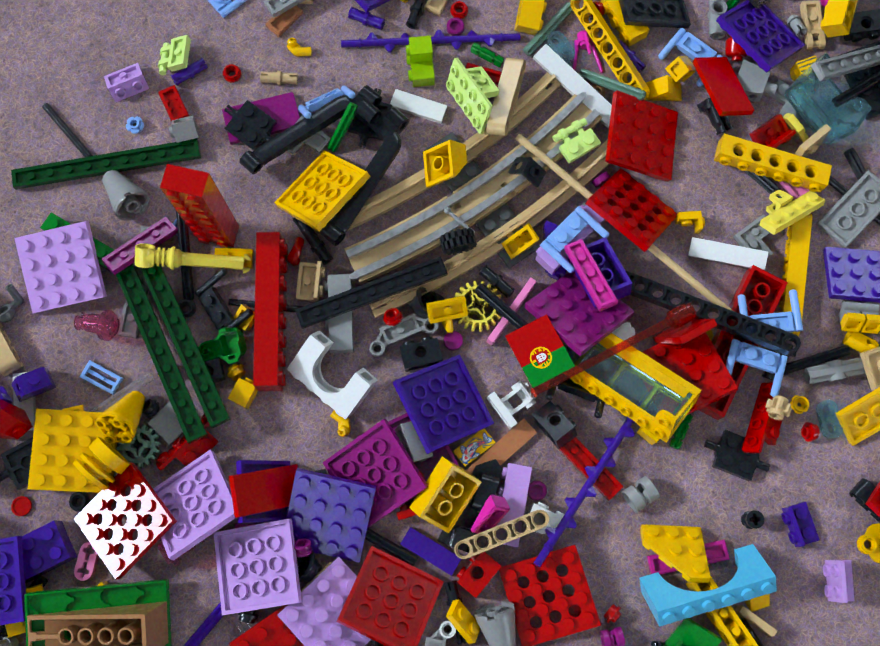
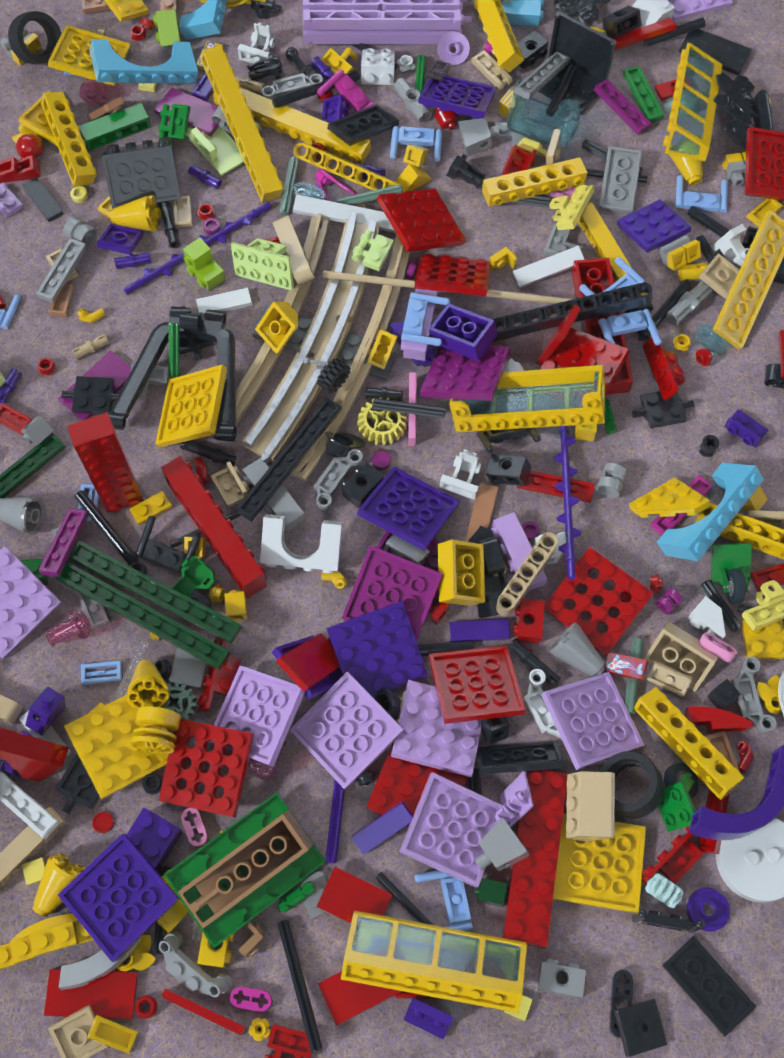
camera: 30 degrees left, 10 degrees down
(147, 256) = (101, 532): light yellow piece -> none
(303, 547) = (374, 689): magenta bush -> none
(320, 101) = (134, 352): light blue plate -> none
(392, 317) = (319, 469): red plate -> none
(446, 310) = (361, 435): yellow plate -> none
(463, 621) = (544, 662): yellow plate -> none
(474, 447) = (457, 526): tile -> none
(487, 54) = (252, 232): green axle -> none
(491, 513) = (508, 562): dark pink slope -> none
(529, 169) = (350, 290): black bracket -> none
(547, 360) = (470, 421): flag -> none
(591, 275) = (458, 334): dark pink tile -> none
(723, 86) = (457, 147): red tile -> none
(778, 407) = (668, 349): tan gear -> none
(795, 23) = (478, 76): light grey pin -> none

